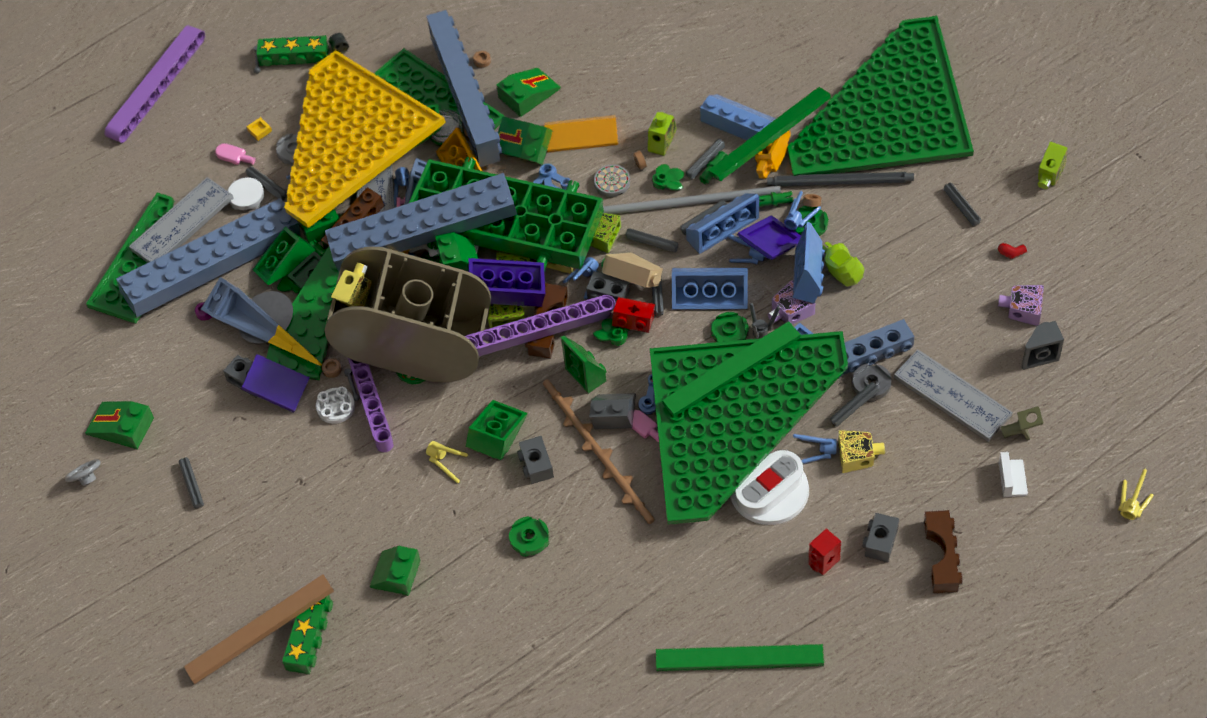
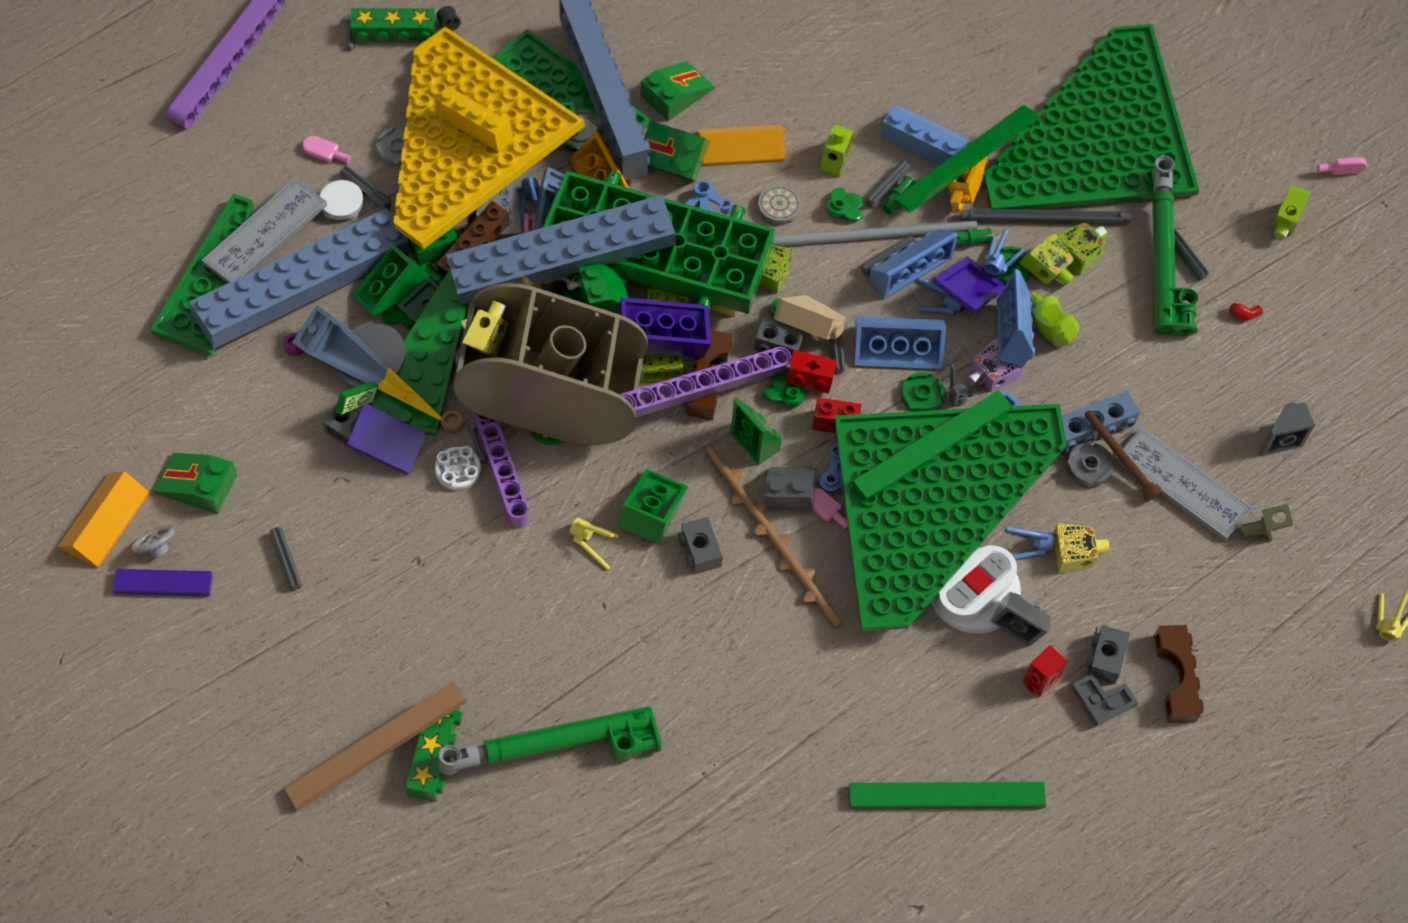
camera: 10 degrees left, 5 degrees up
(45, 456) = (104, 518): none -> light orange slope
(90, 505) = (163, 582): none -> dark purple tile
(248, 351) = (356, 398): none -> tile
(259, 128) = (355, 119): yellow plate -> none
(353, 121) = (473, 119): none -> yellow brick
(396, 570) = (537, 676): green slope -> none
(471, 609) = (631, 728): none -> green piece
(481, 59) = (620, 47): medium nougat tile -> none
(529, 546) = (694, 651): green plate -> none
(588, 267) = (756, 314): medium blue plant -> none
(639, 159) = (812, 181): medium nougat tile -> none
(643, 345) = (827, 410): none -> red brick
(651, 240) = (828, 280): dark grey axle -> none
(805, 509) = (1021, 618): none -> dark grey slope
(811, 200) = (1014, 240): medium nougat tile -> none
(840, 215) = (1049, 261): none -> lime torso
(854, 404) = (1072, 491): dark grey axle -> none
(869, 202) = (1083, 245): none -> torso
(874, 579) = (1103, 705): none -> dark grey plate
(922, 400) = (1150, 489): none -> reddish brown piece
(944, 247) = (1170, 312): none -> green piece
(1012, 476) = (1254, 585): white panel -> none
(1024, 303) = (1262, 377): lavender torso -> none
(1102, 125) = (1344, 166): none -> bright pink piece

